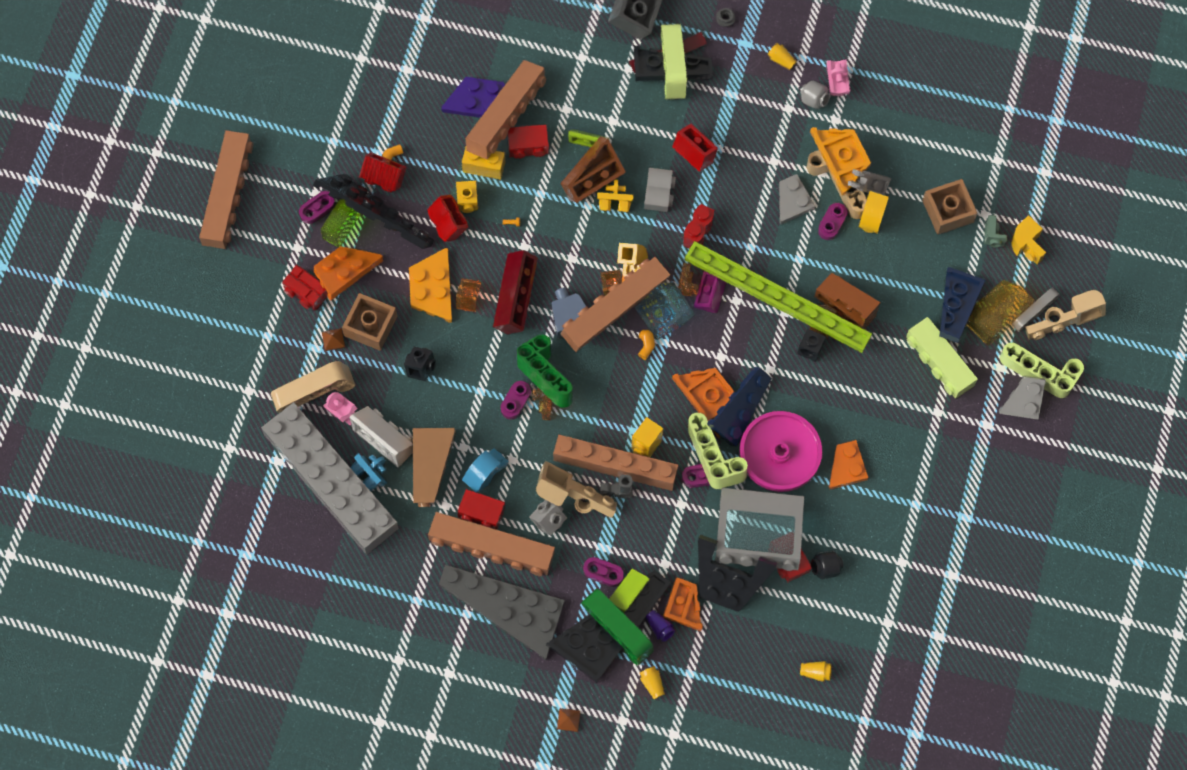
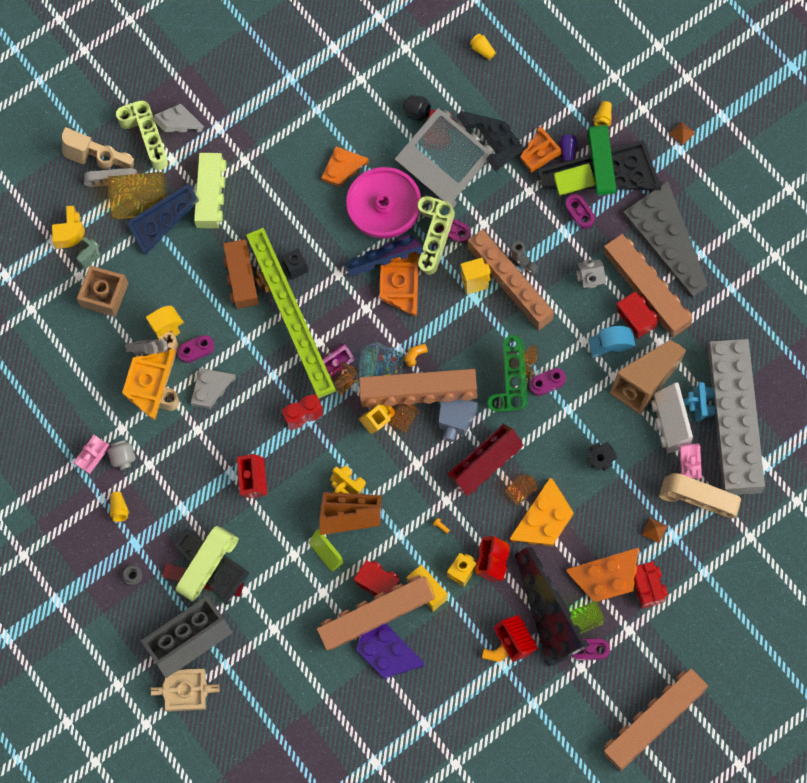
camera: 135 degrees left, 0 degrees up
(369, 321) = (617, 516): medium nougat brick -> none
(556, 484) = (567, 283): tan plate -> none
(658, 190) = (307, 465): light grey brick -> none

